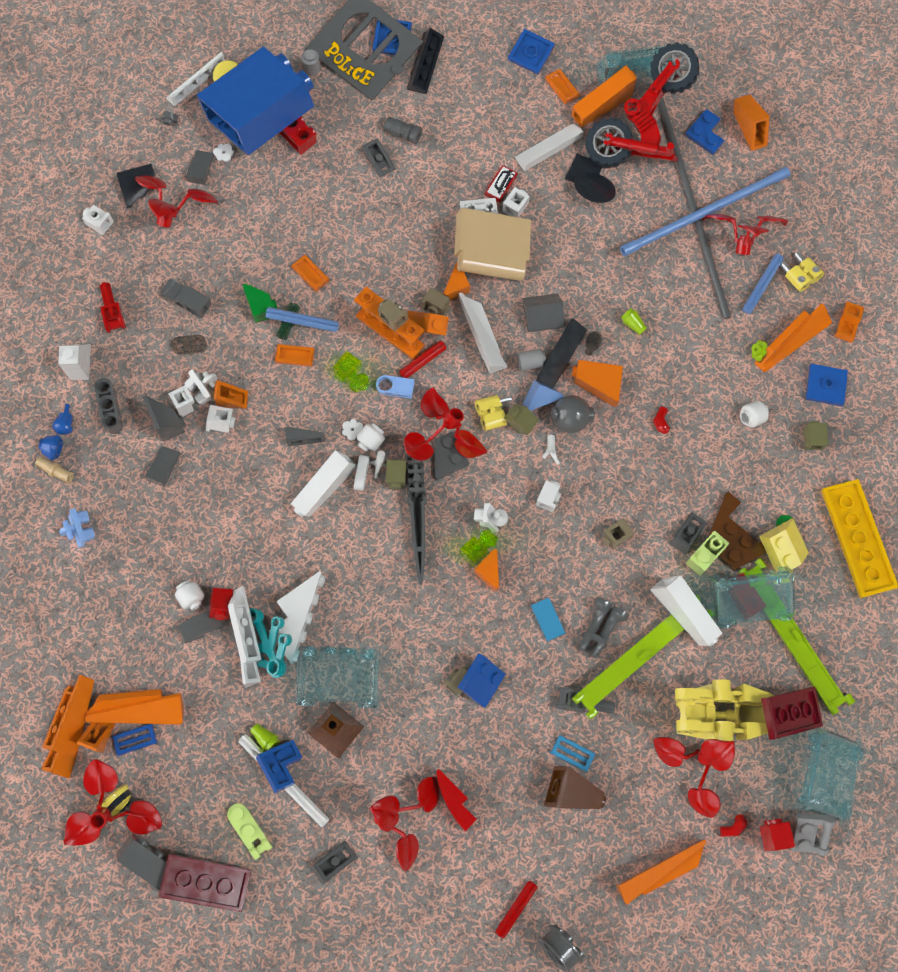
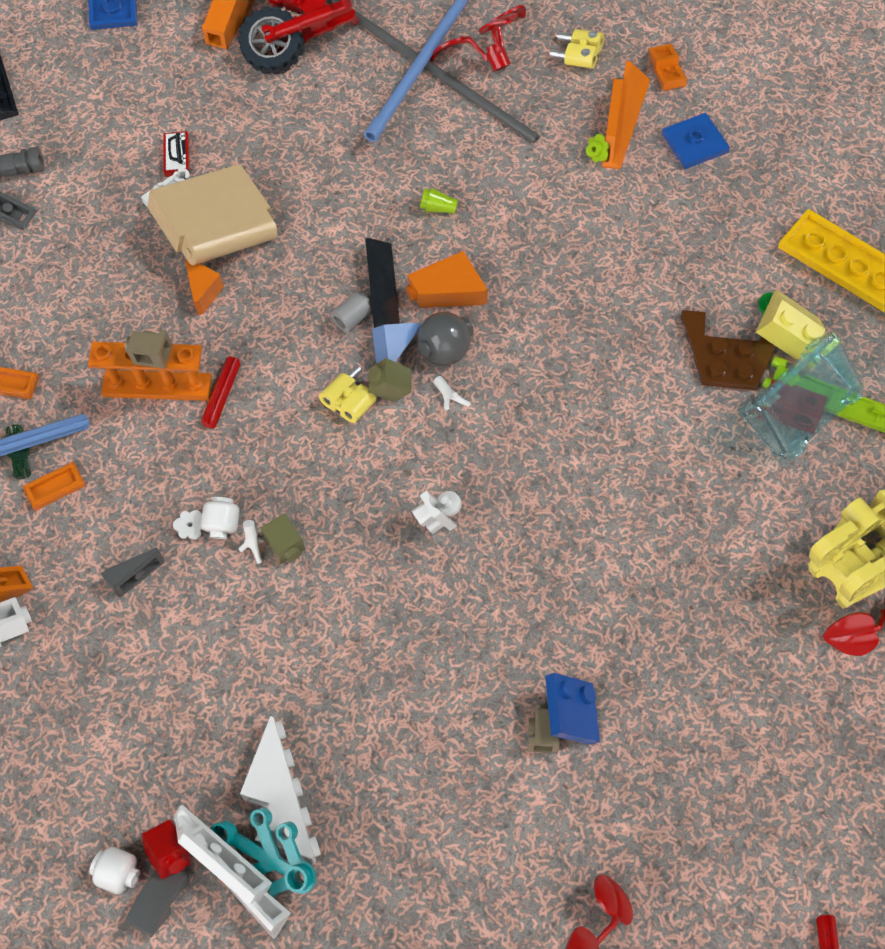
camera: 30 degrees left, 10 degrees down
(324, 483) = (199, 609): white slope -> none
(338, 676) = (390, 833): clear light blue windscreen -> none
(339, 738) = (436, 918): reddish brown slope -> none
(347, 369) = (135, 461): clear neon green brick -> none
(361, 472) = (238, 566): white beam -> none
(401, 386) = (216, 440): light blue piece -> none
(417, 500) = (333, 551): dark grey piece -> none
(430, 322) = (209, 332): orange slope -> none
(435, 406) = (308, 426): red plant -> none
(436, 302) = (191, 319): dark tan brick -> none
(447, 457) = (332, 478): dark grey wing -> none
(454, 801) = (650, 884): red slope -> none
(476, 549) = (447, 557): clear neon green brick -> none
(482, 334) = (272, 320): white wedge -> none
(488, 570) = (481, 575): orange slope -> none
(510, 204) = (208, 157): white brick -> none
(543, 312) = (328, 255): dark grey slope -> none
(547, 619) = (593, 585): dark azure tile -> none
(549, 146) = (204, 86): white slope -> none
(549, 495) = (487, 444): white brick -> none
(557, 745) = (740, 733): dark azure tile -> none
(562, 86) = (173, 20): orange tile -> none
(566, 702) = (704, 654): dark grey connector -> none
(572, 791) = (780, 763): reddish brown slope -> none
(582, 165) = (263, 89): black piece -> none
(593, 342) = (408, 251): clear smoke cylinder -> none
(595, 187) = (288, 95): black shield -> none
(602, 608) = (668, 524): dark grey piece -> none
(622, 529) = (599, 426): dark tan brick -> none
(629, 663) = (730, 552): lime piece -> none
(660, 422) = (549, 286): red arm -> none
(687, 609) = (744, 460): white slope -> none
(688, 533) = (675, 384): dark grey slope -> none
(707, 553) = (715, 388): yellowish green slope -> none
(754, 414) = (645, 213): white head -> none
(763, 283) = (547, 84): medium blue axle -> none
(815, 436) = (728, 195): olive brick -> none

